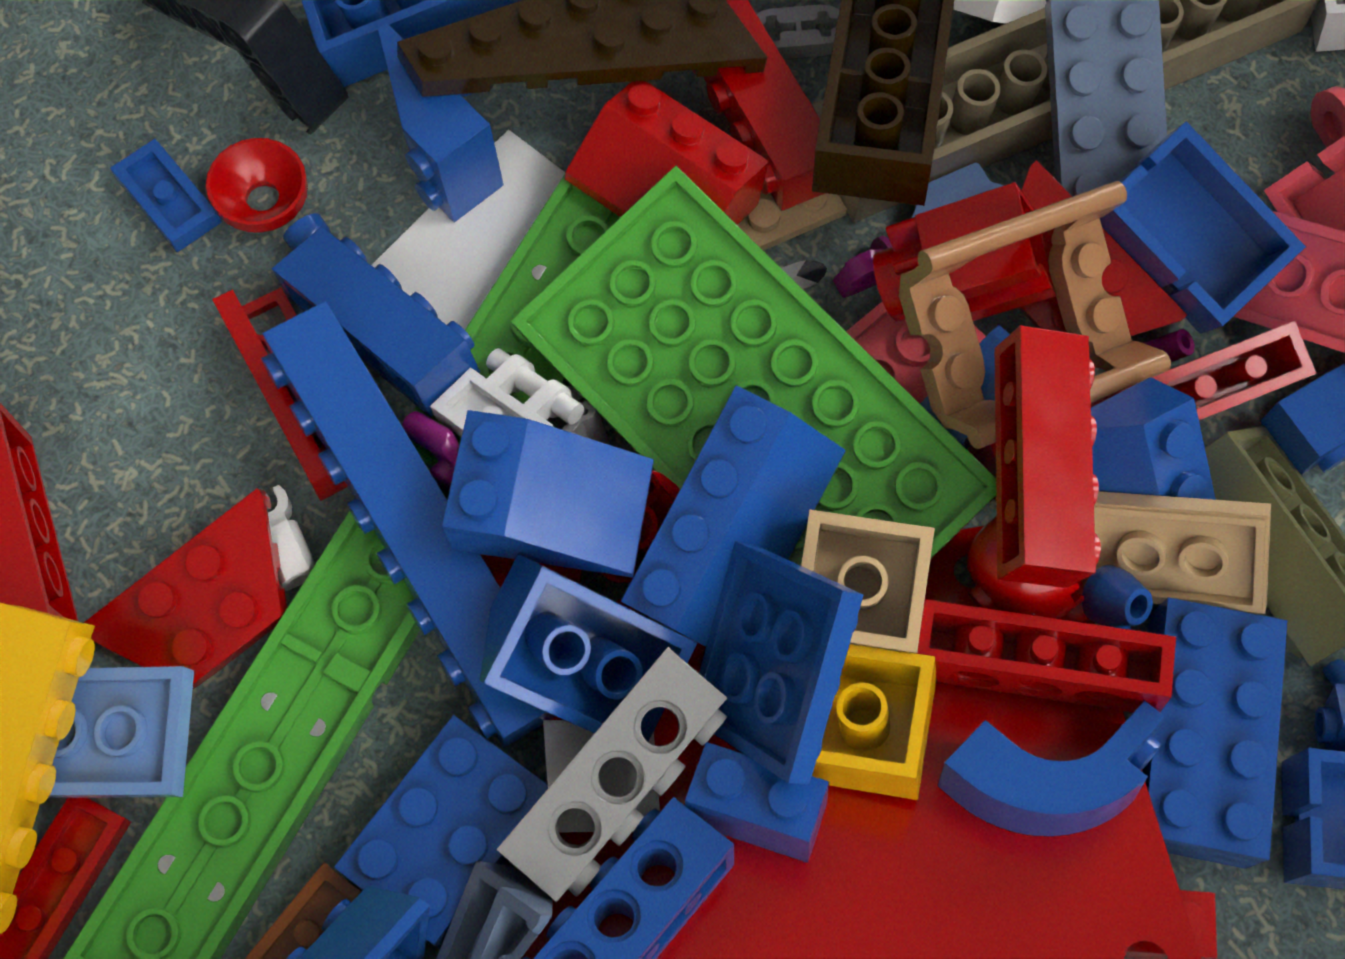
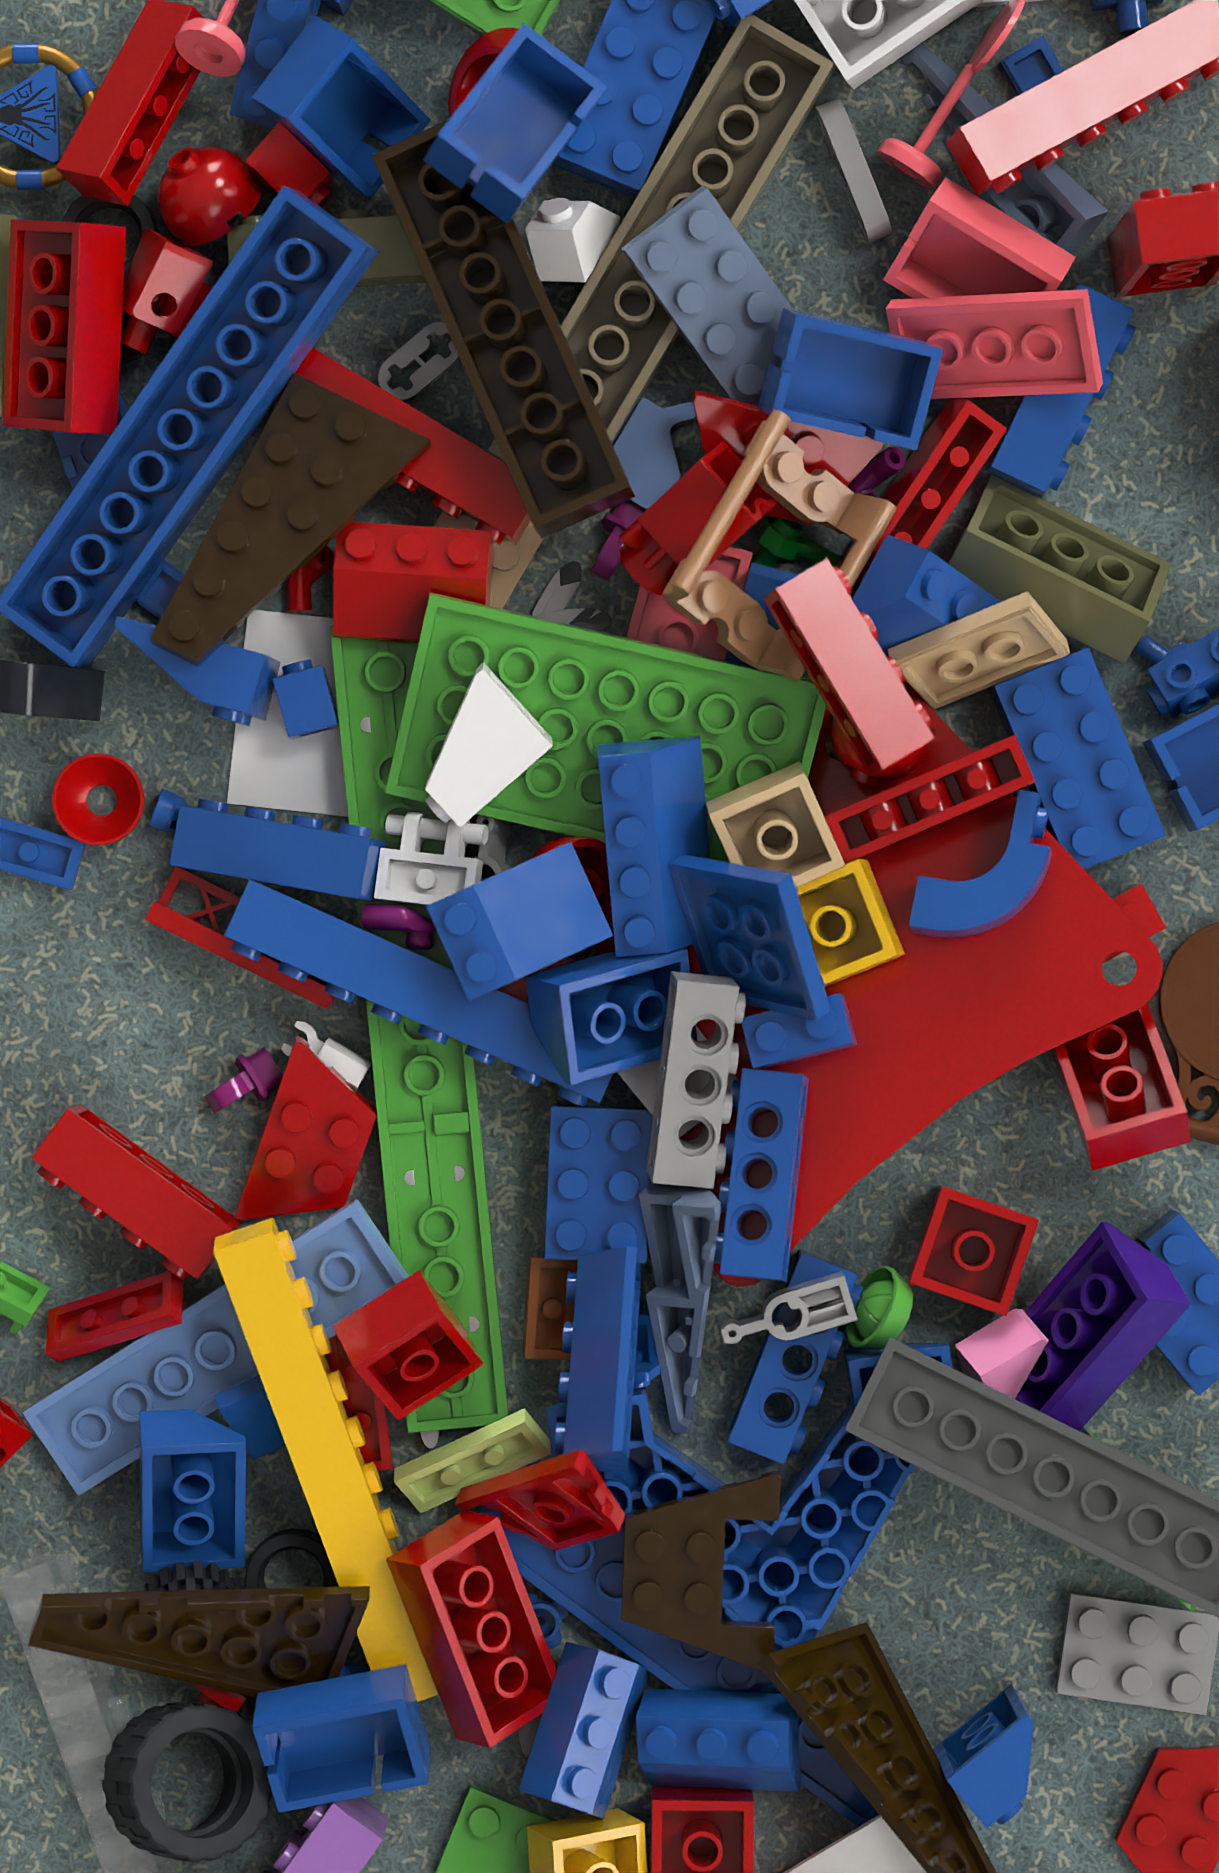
camera: 30 degrees left, 20 degrees up
(120, 853) = (408, 1345): none -> red brick
(185, 510) = (256, 1074): none -> magenta piece
(498, 217) = (305, 699): none -> blue brick
(569, 131) = (299, 583): none -> red arm
(627, 325) = (484, 749): none -> white slope
(1116, 598) = (961, 712): blue bar -> none
(1284, 100) = (849, 157): none -> light grey beam

